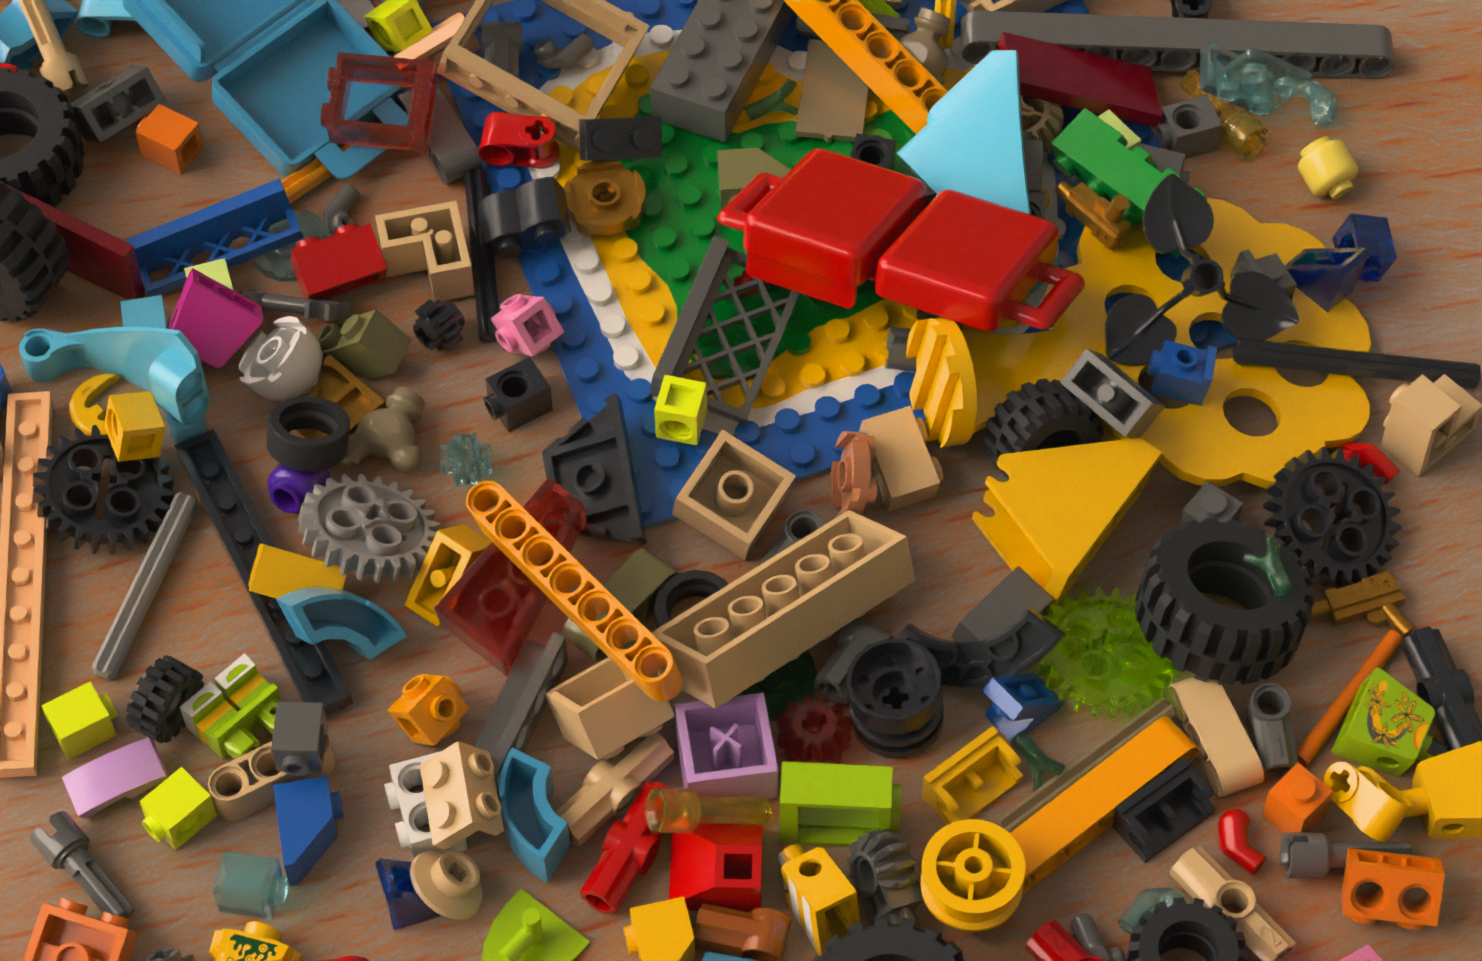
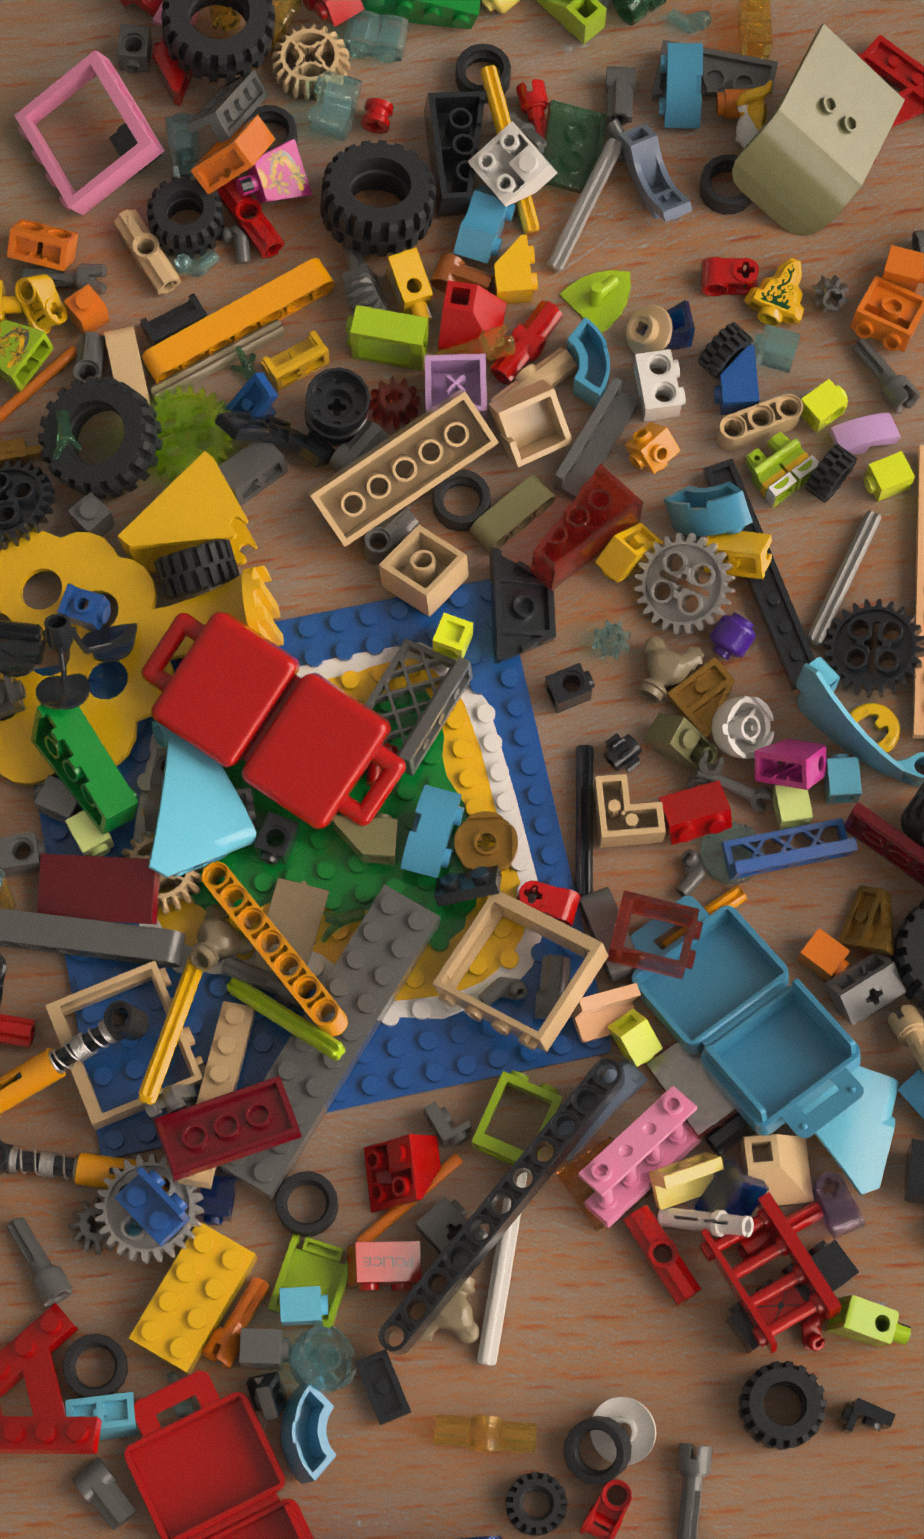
camera: 175 degrees left, 15 degrees up
(109, 173) = (869, 922): none -> pearl gold wing
(134, 426) = (854, 678): yellow brick -> none
(299, 737) = (740, 416): dark grey brick -> none
(307, 453) = (701, 647): black tyre -> none
(327, 856) = (724, 349): none -> black tyre
(460, 794) = (635, 363): tan bracket -> none
(524, 217) = (549, 826): black brick -> none
(526, 325) = (557, 738): bright pink brick -> none
(584, 603) = (548, 482): light orange beam -> none
(674, 192) = (428, 841): none -> dark azure brick
(851, 475) = (335, 576): nougat plate -> none
(902, 460) = (300, 591): tan brick -> none
(972, 875) = (311, 265): yellow wheel -> none
(1097, 213) = (117, 752): pearl gold piece -> none
(1112, 394) = (143, 576): dark grey brick -> none
(1233, 841) = (133, 299): red arm -> none

